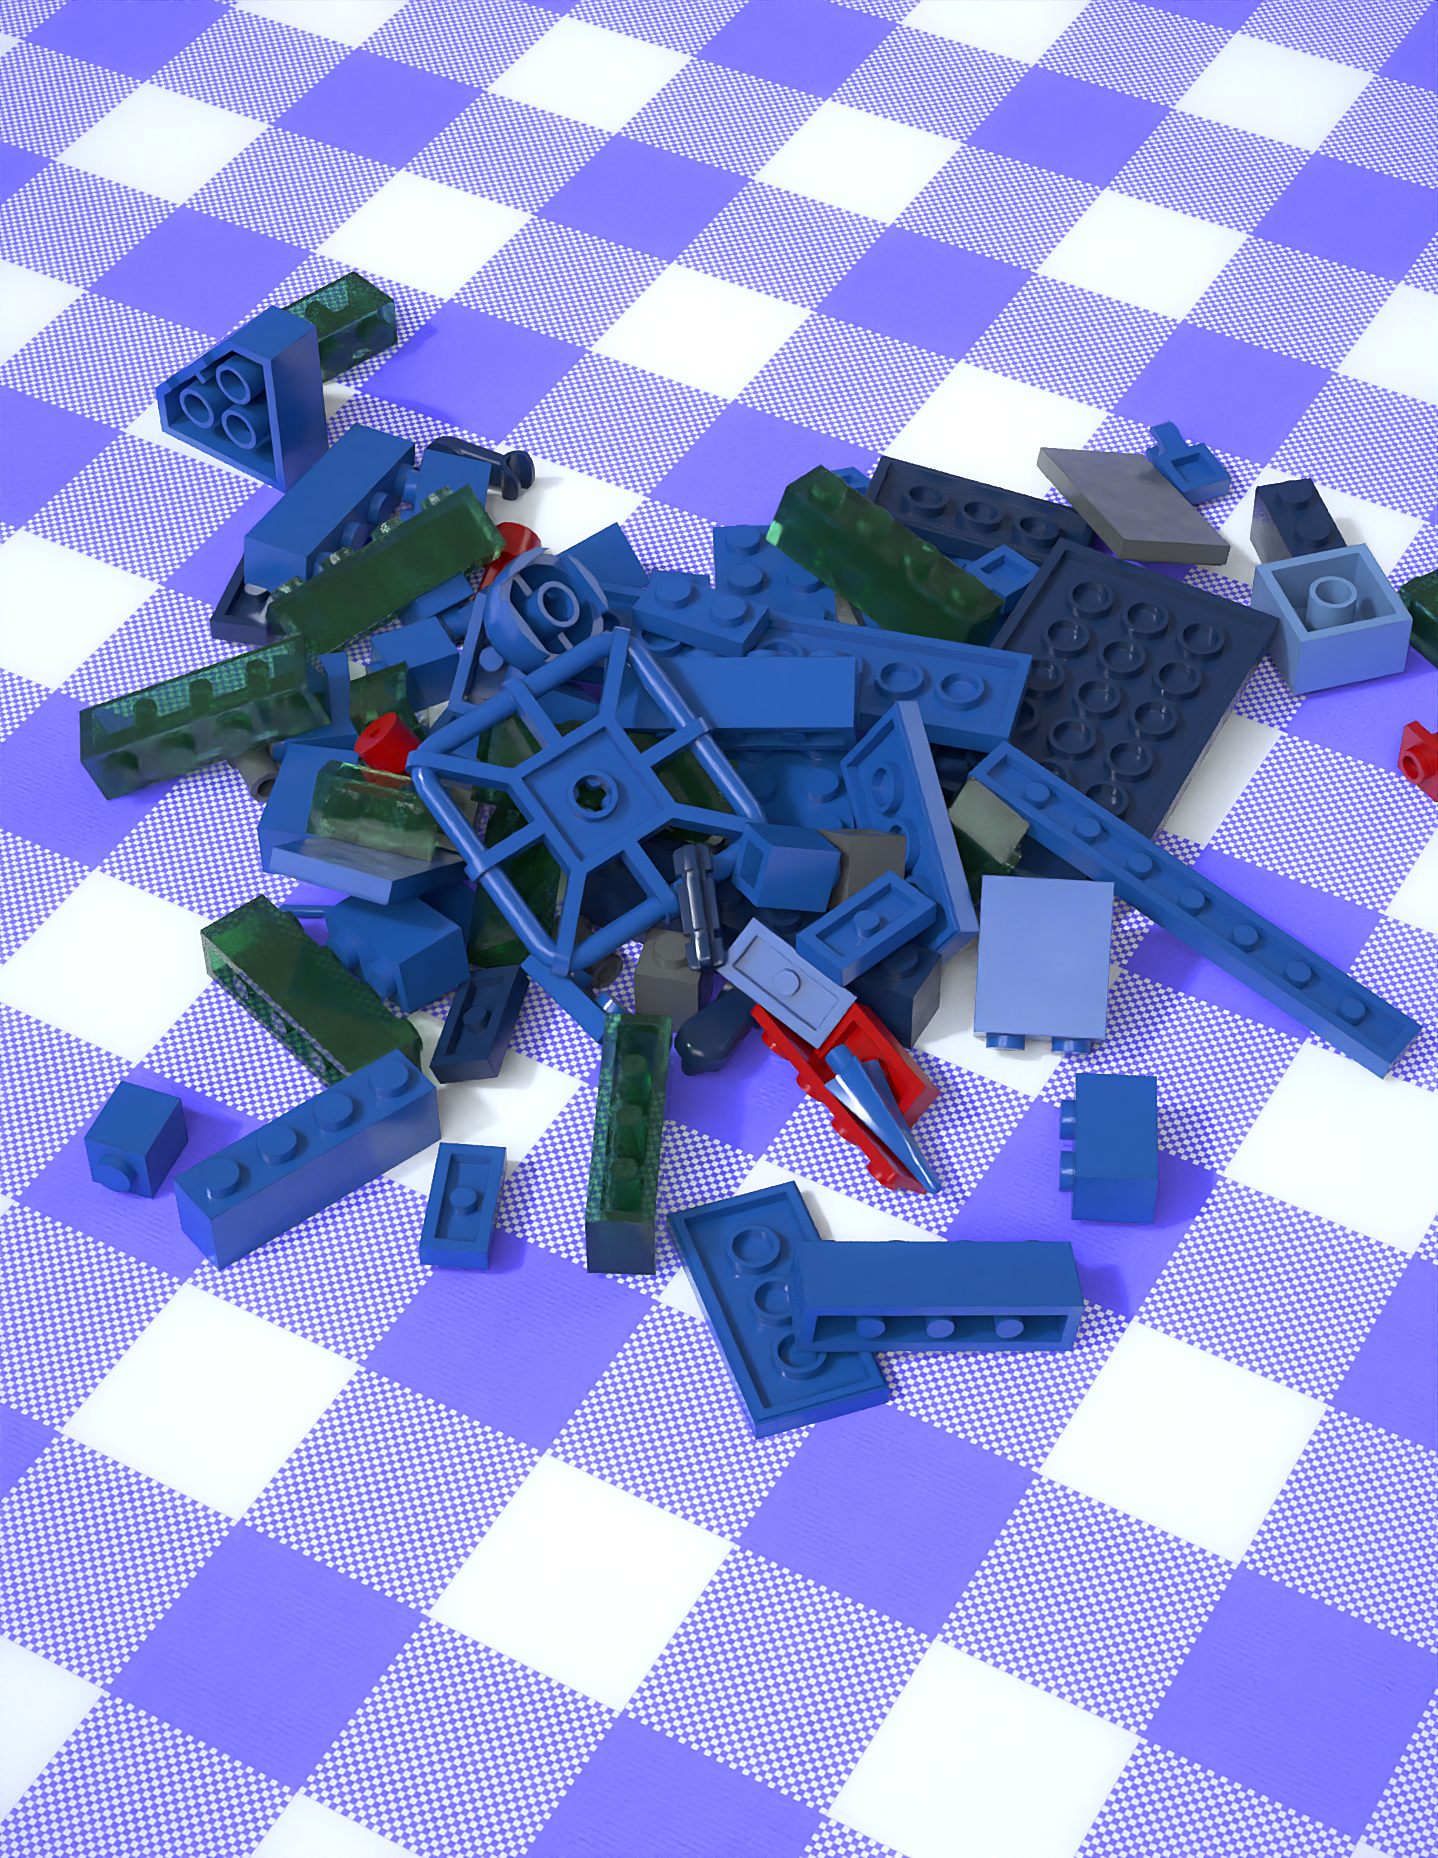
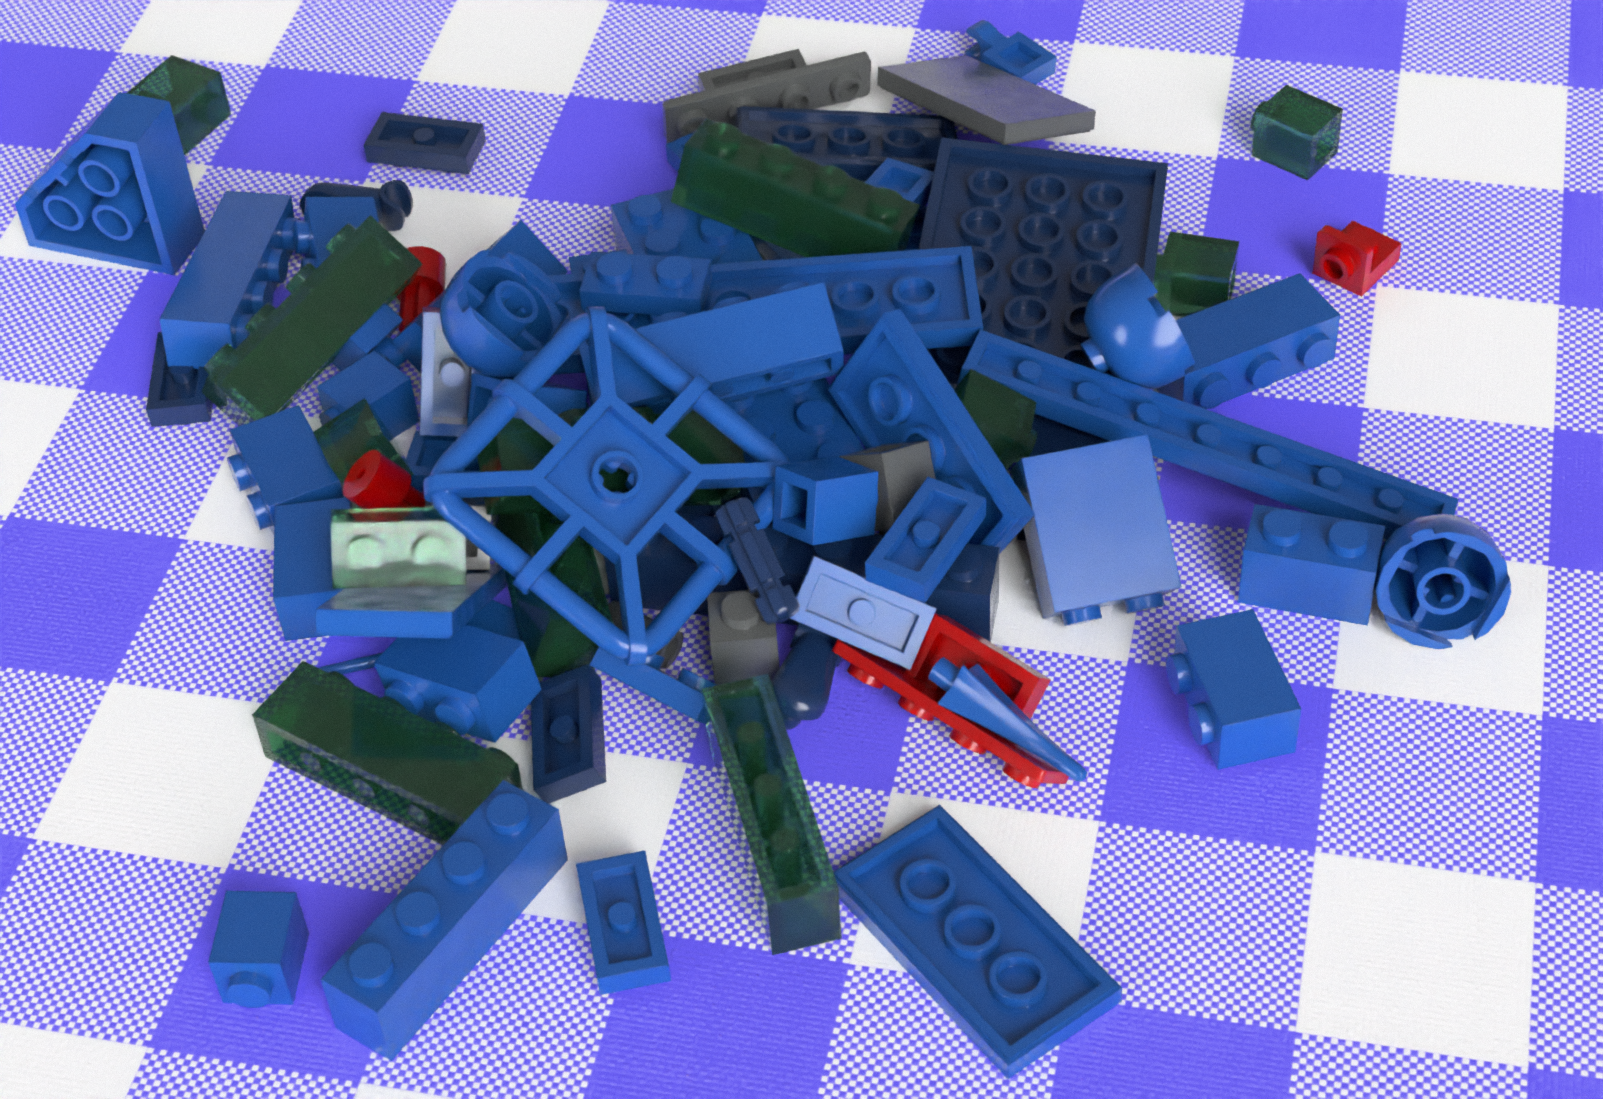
camera: 15 degrees left, 0 degrees up
(204, 717) = (179, 502): brick -> none
(257, 771) = (231, 526): dark grey pin -> none
(569, 418) = (425, 143): none -> dark blue plate
(923, 437) = (770, 82): none -> dark grey bracket
(934, 1296) = (1131, 883): blue brick -> none
(1155, 781) = (1133, 333): none -> blue cylinder
(1245, 1051) = (1310, 564): none -> blue brick
(1268, 741) = (1195, 273): none -> clear green brick
(1281, 820) = (1255, 341): none -> blue brick
(1291, 521) = (1144, 99): dark blue brick -> none
(1335, 618) = (1215, 152): medium blue brick -> none
(1360, 1099) = (1441, 581): none -> blue cylinder

